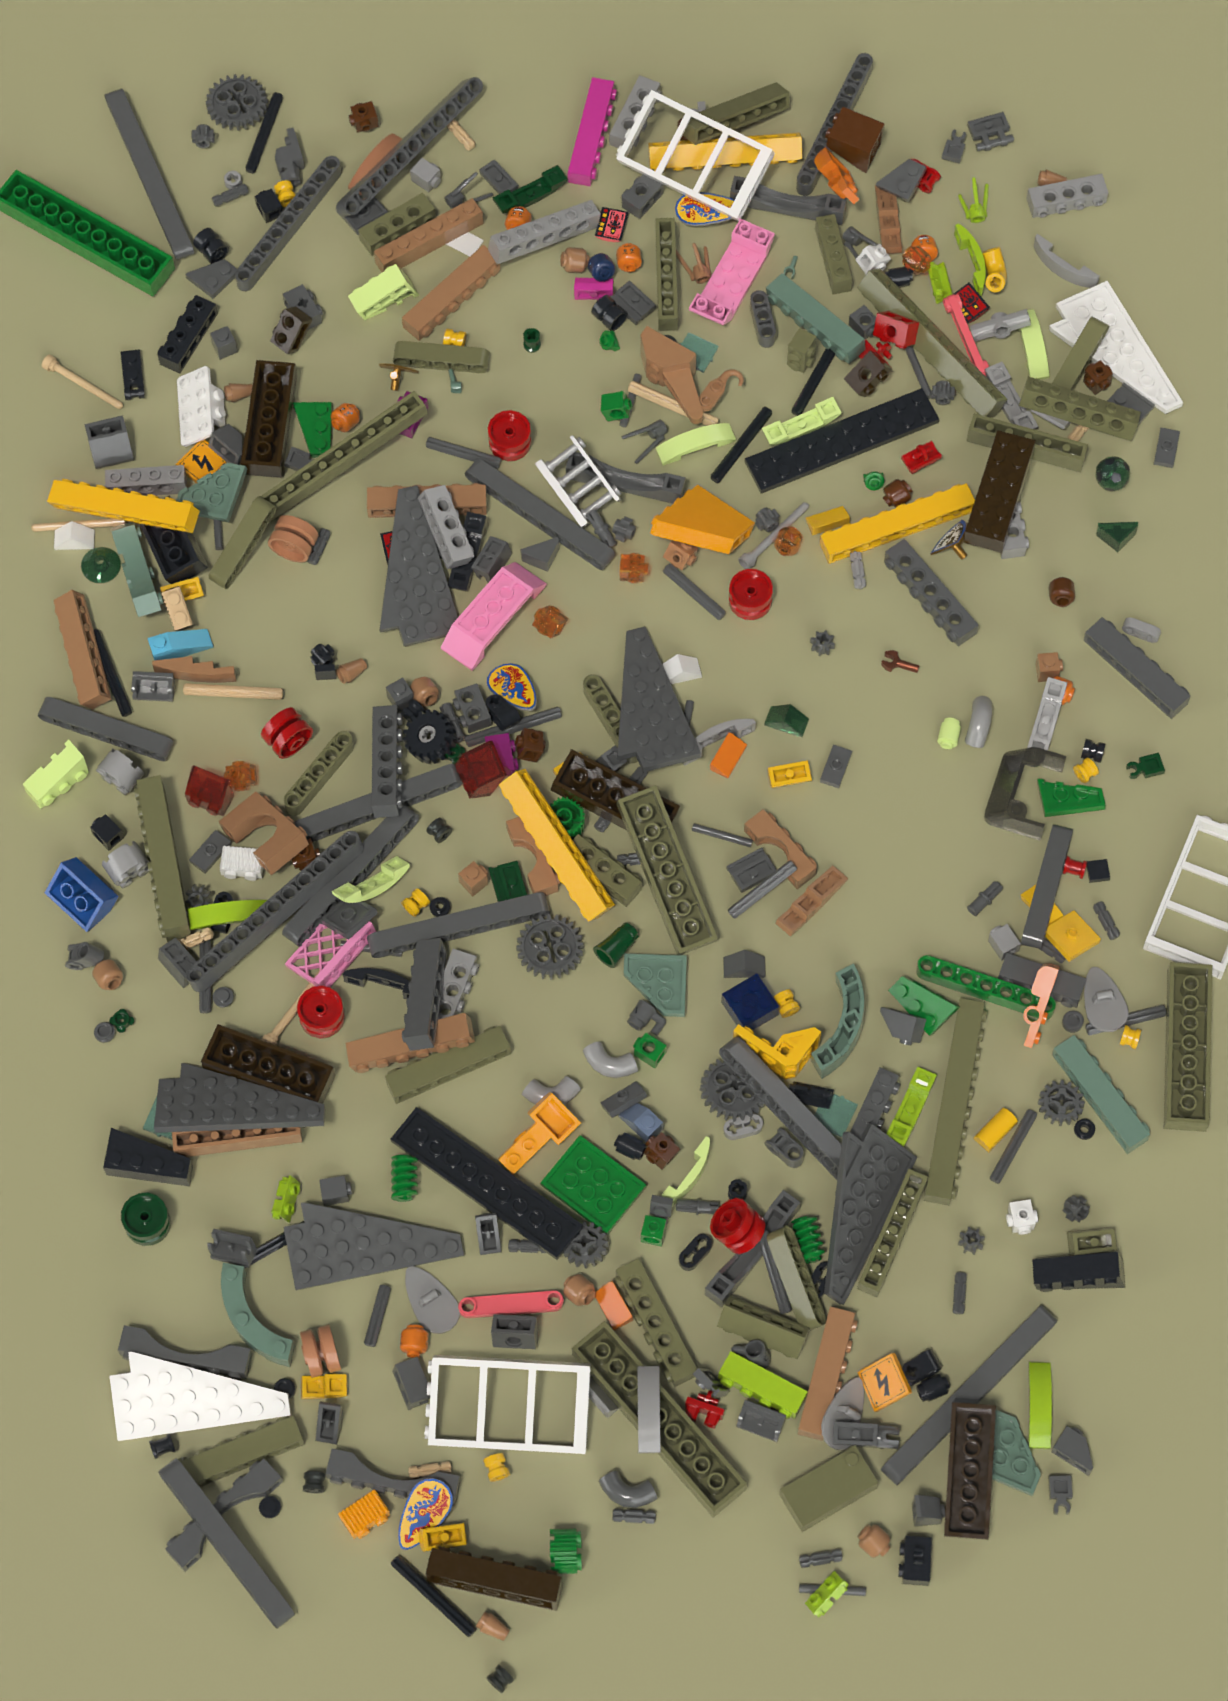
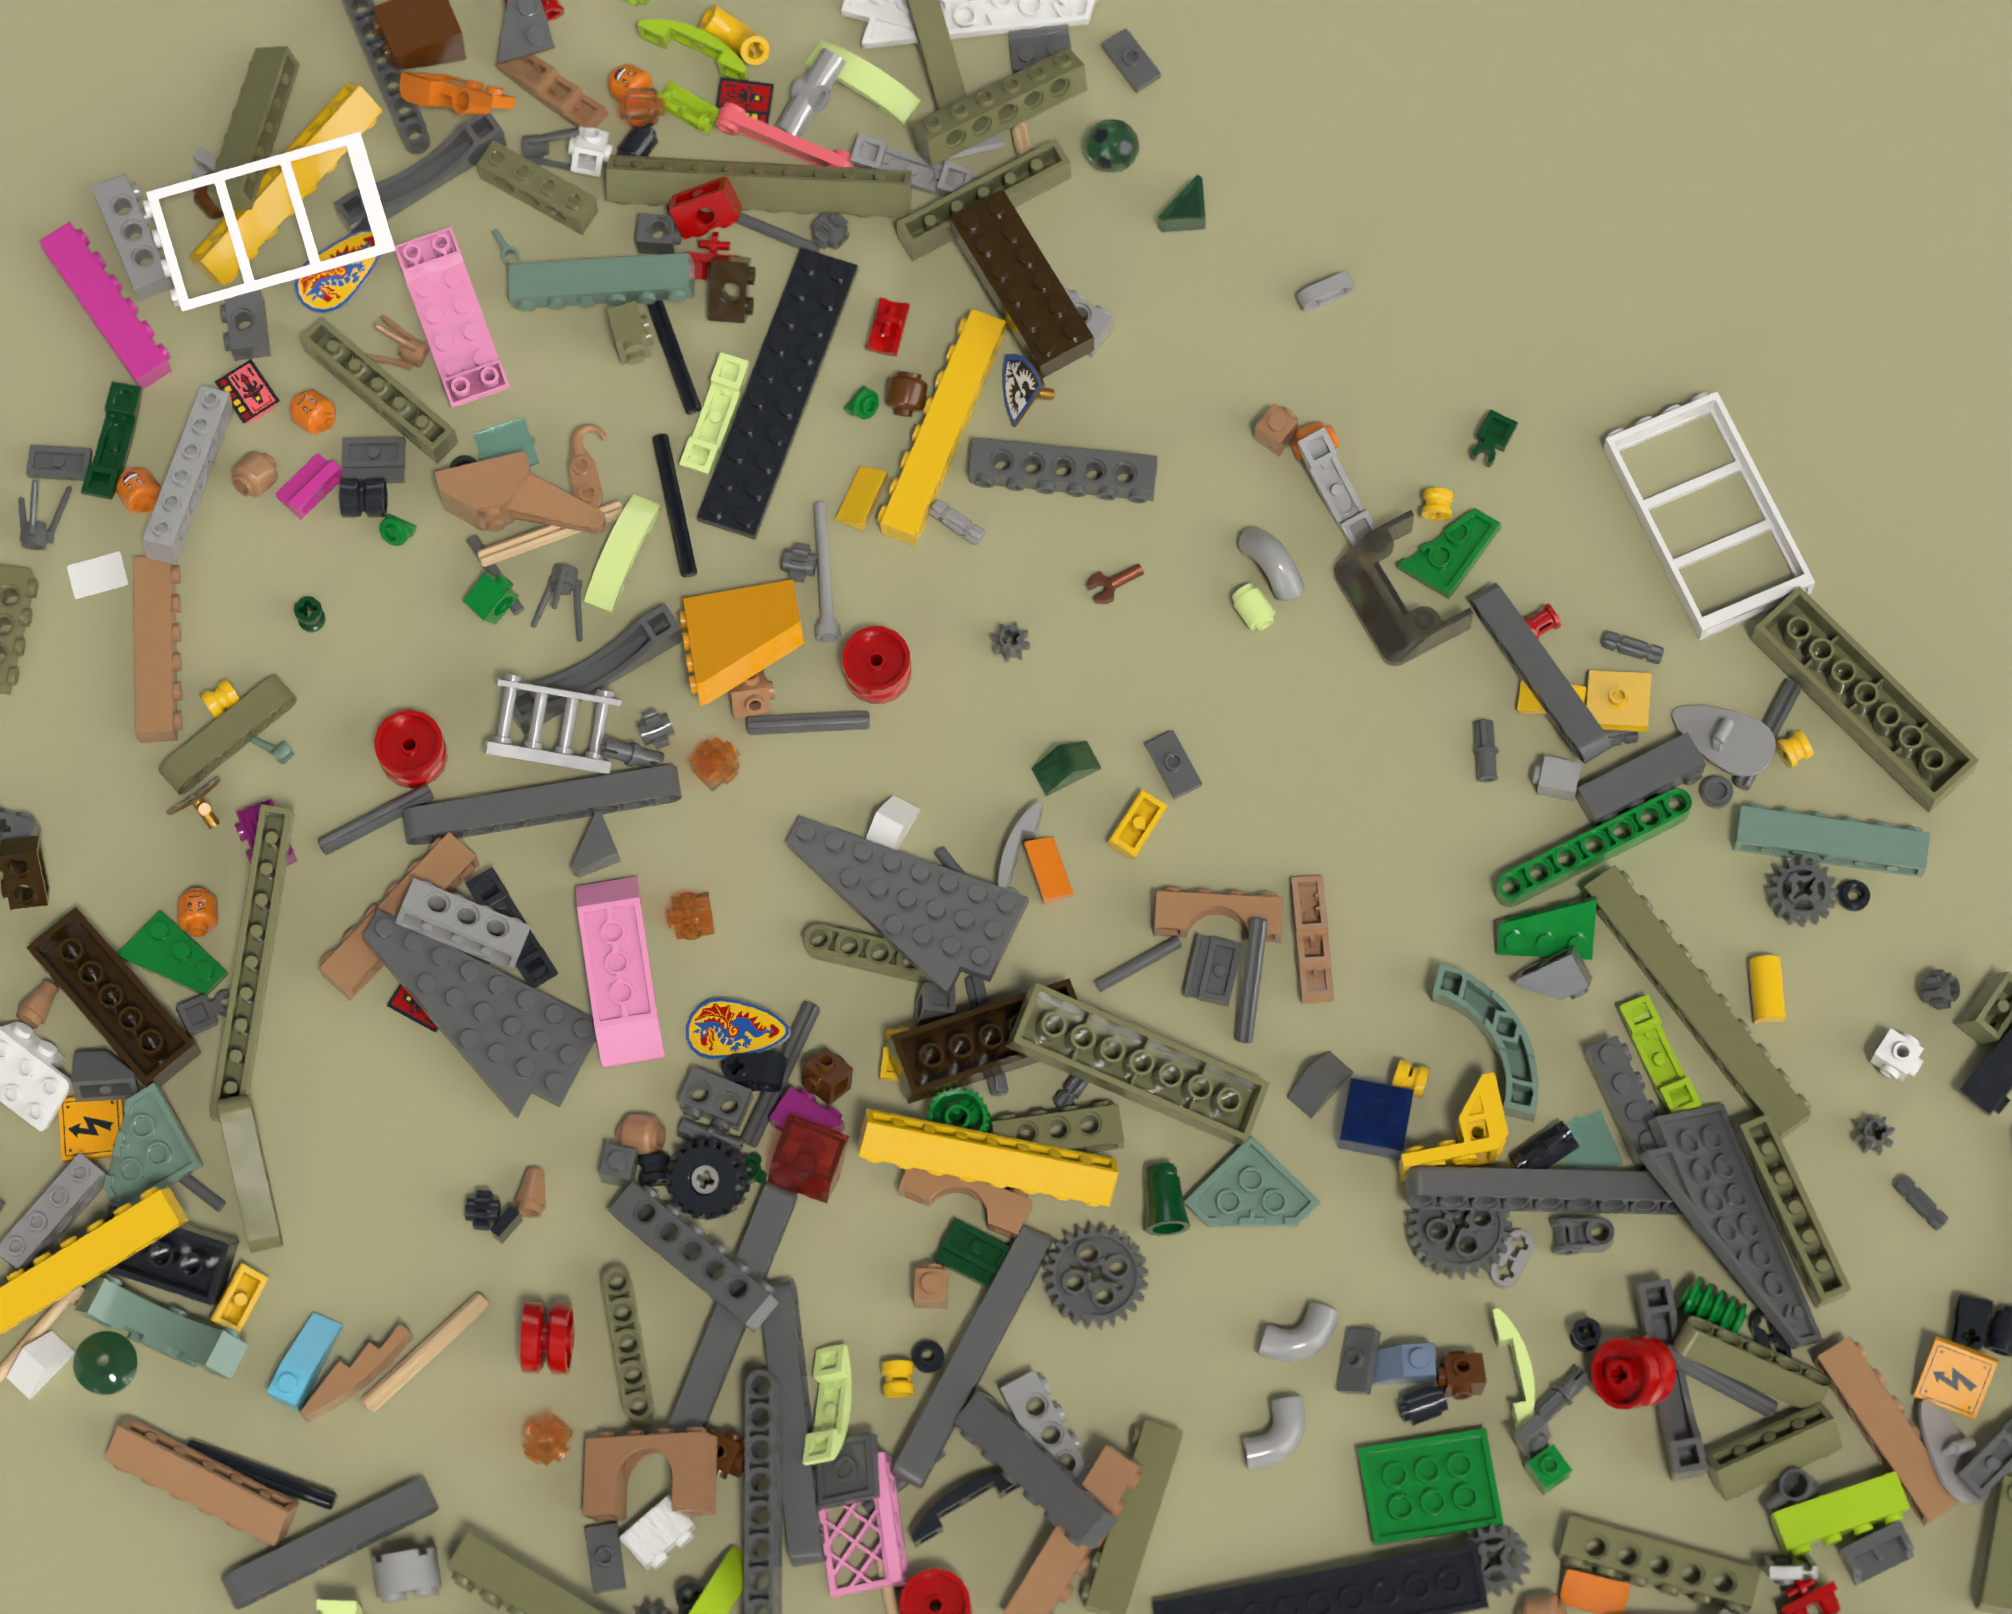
camera: 45 degrees left, 5 degrees up
(153, 686) = (329, 1440): dark grey hinge -> none
(176, 608) = (259, 1324): tan brick -> none
(208, 791) = (533, 1494): clear red slope -> none
(293, 538) = (302, 1111): nougat wheel -> none
(319, 546) = (333, 1090): dark grey axle -> none
(381, 292) = (76, 726): yellowish green wedge -> none
(430, 236) = (57, 609): medium nougat brick -> none
(439, 830) = (832, 1272): pearl dark grey wheel -> none
(491, 558) = (547, 909): dark grey hinge -> none
(551, 1121) = (1316, 1465): light orange plate -> none
(601, 267) = (295, 453): dark blue head -> none
(641, 1016) = (1276, 1248): dark grey piece -> none
(654, 1057) = (1336, 1268): green brick -> none
(698, 1255) = (1604, 1446): black beam -> none
(762, 310) = (532, 327): dark grey beam -> none
(788, 541) = (848, 563): clear orange head -> none
(1013, 1146) = (1804, 989): dark grey axle -> none
(1042, 987) = (1663, 782): plate -> none
(1061, 591) = (1199, 331): reddish brown head -> none
(1093, 750) = (1419, 476): black wheel -> none
(1097, 377) = (977, 51): reddish brown brick -> none
(1098, 871) = (1567, 601): black tile -> none
(1137, 667) = (1367, 337): dark grey brick -> none

